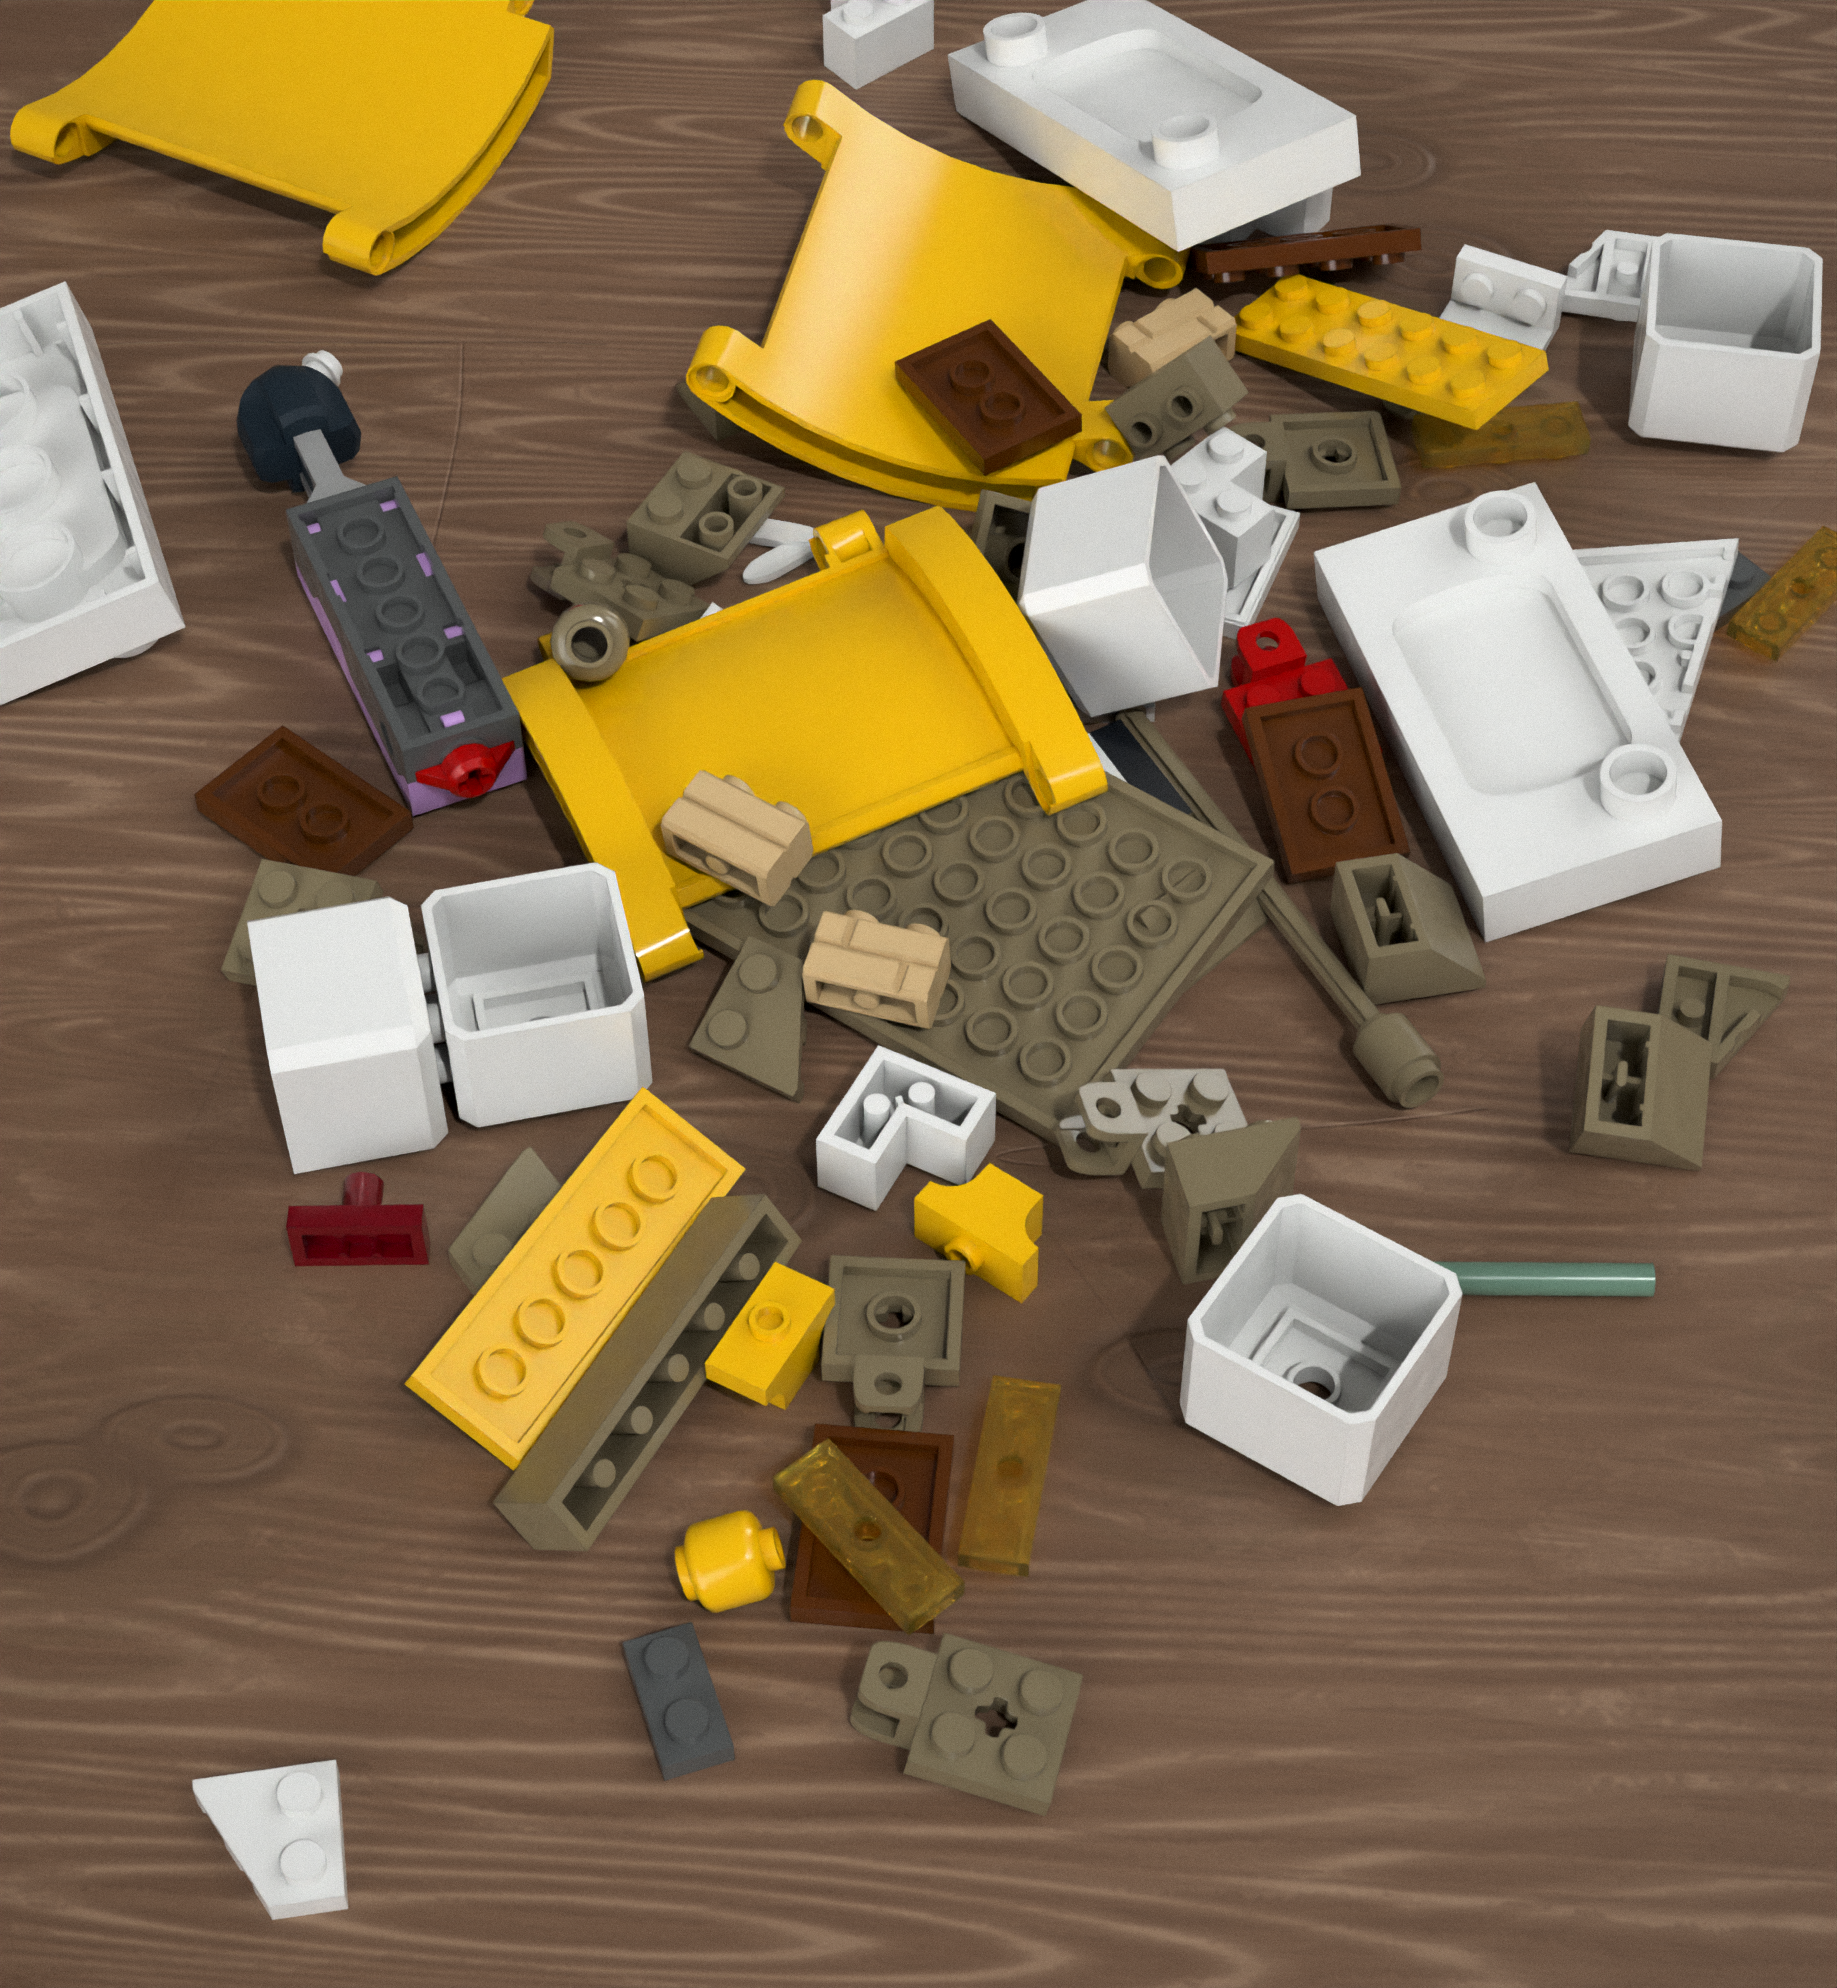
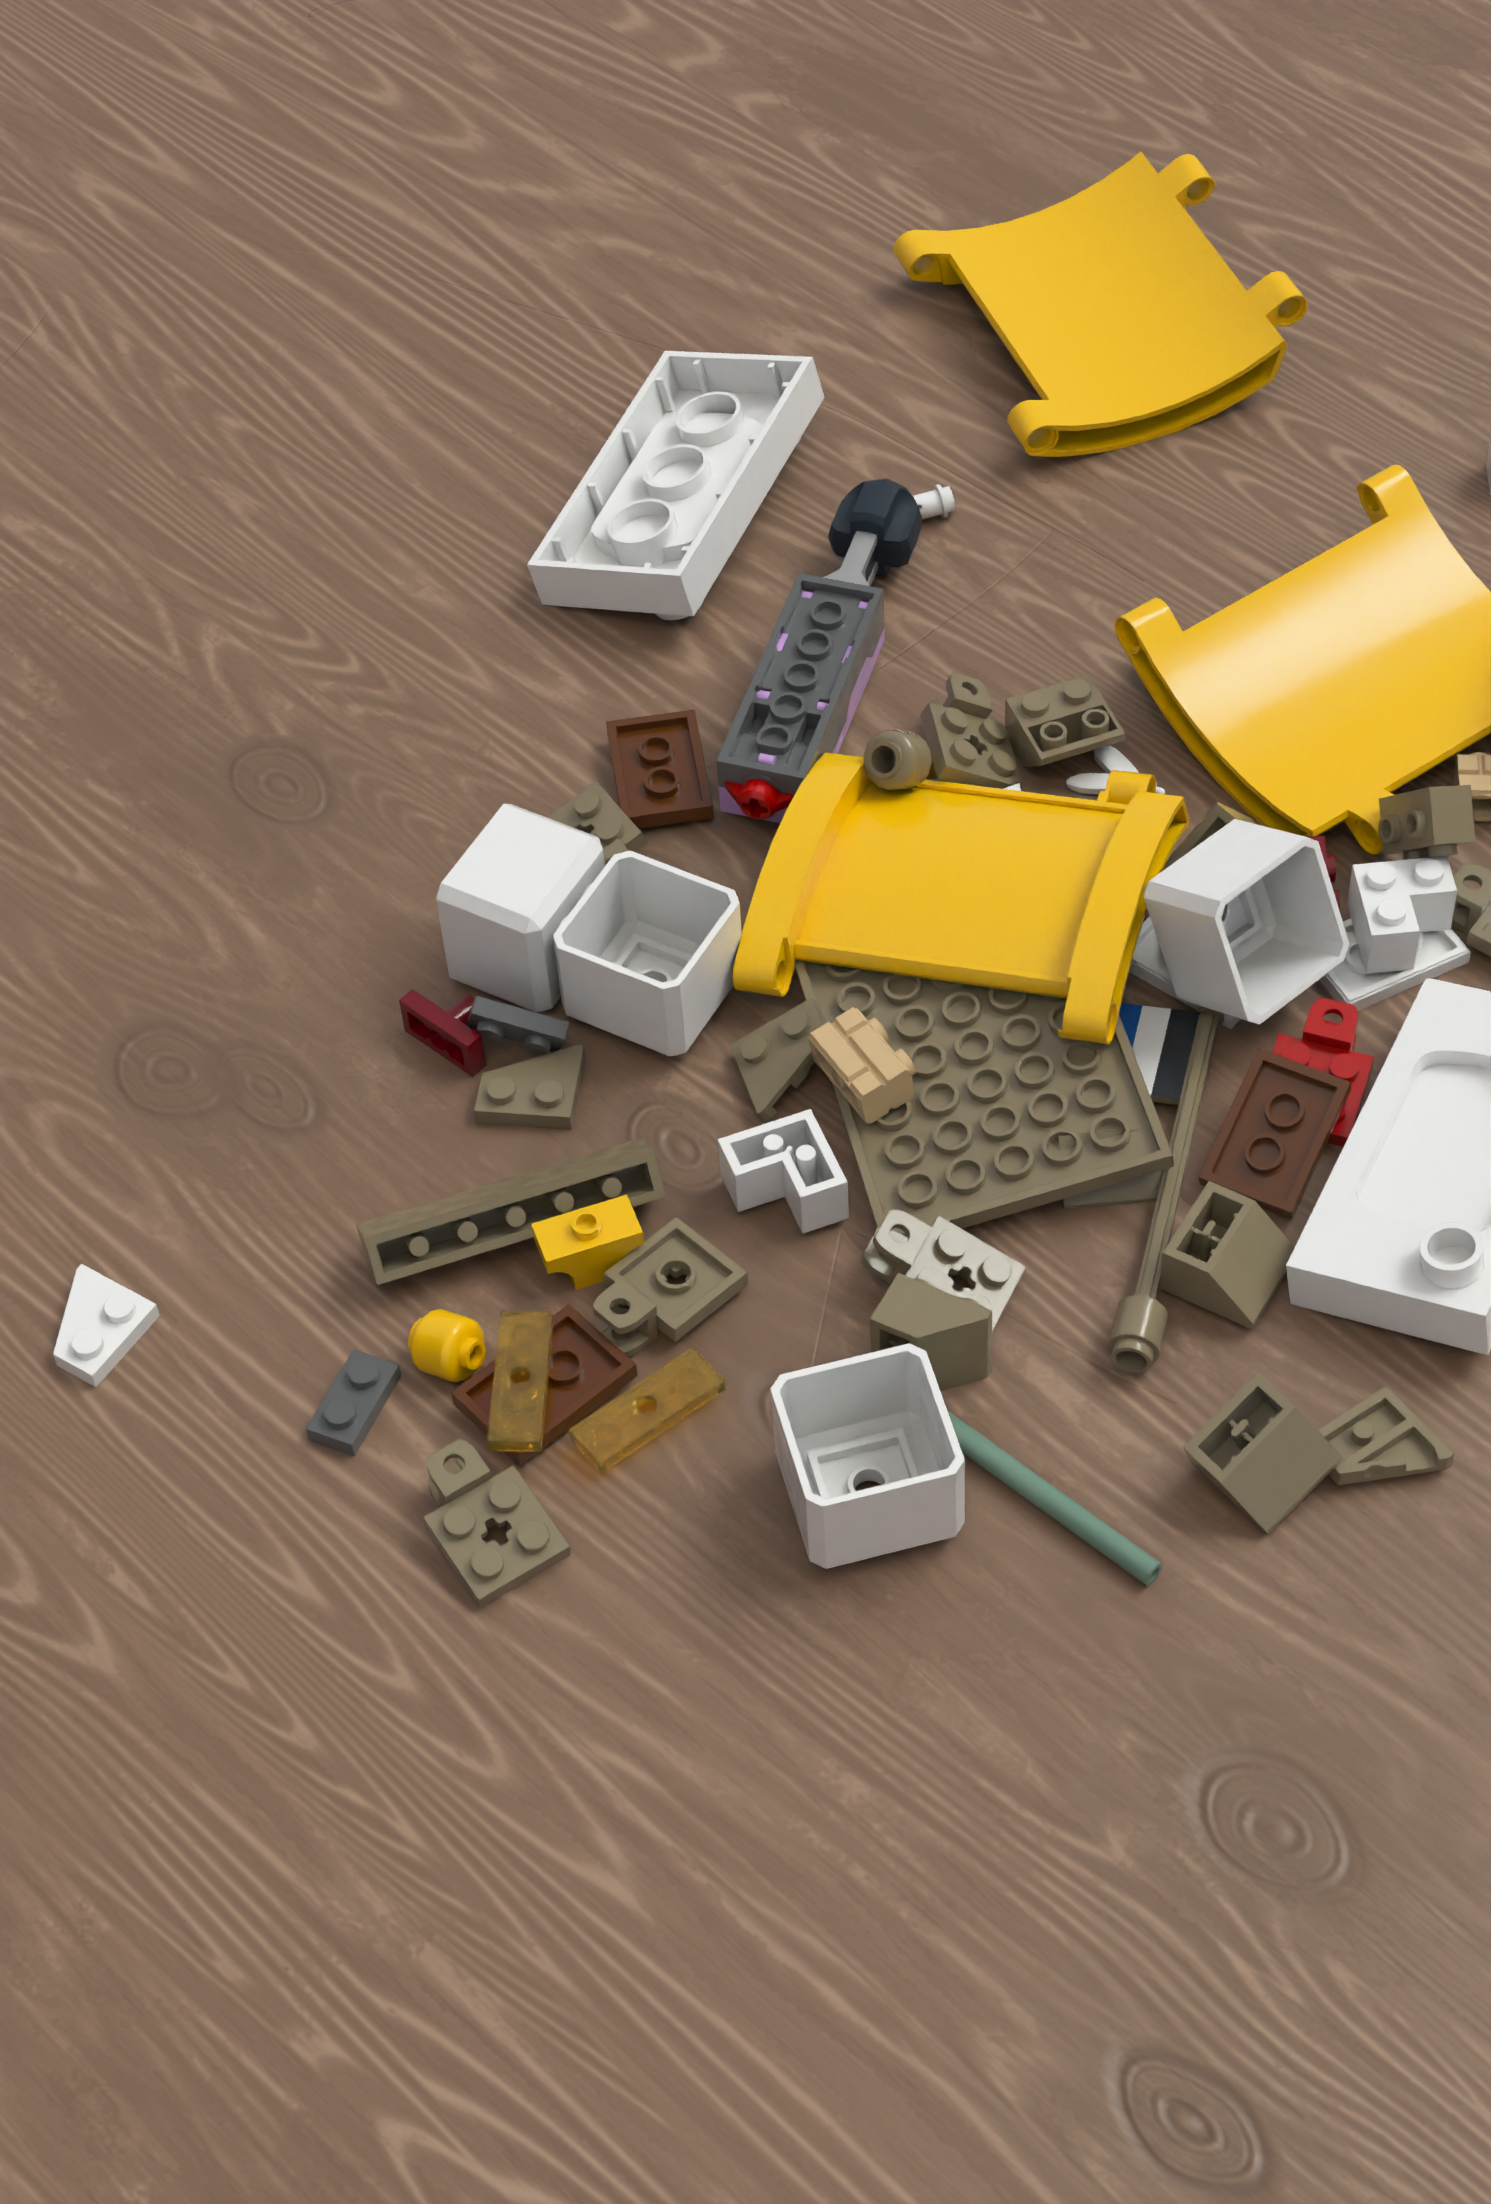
camera: 45 degrees right, 0 degrees up
(432, 1173) = (500, 1021): none -> dark grey plate
(573, 1278) = (527, 1127): yellow plate -> none
(738, 836) = (848, 930): tan brick -> none
(987, 1225) = (782, 1263): yellow brick -> none
(988, 397) = (1313, 748): reddish brown plate -> none

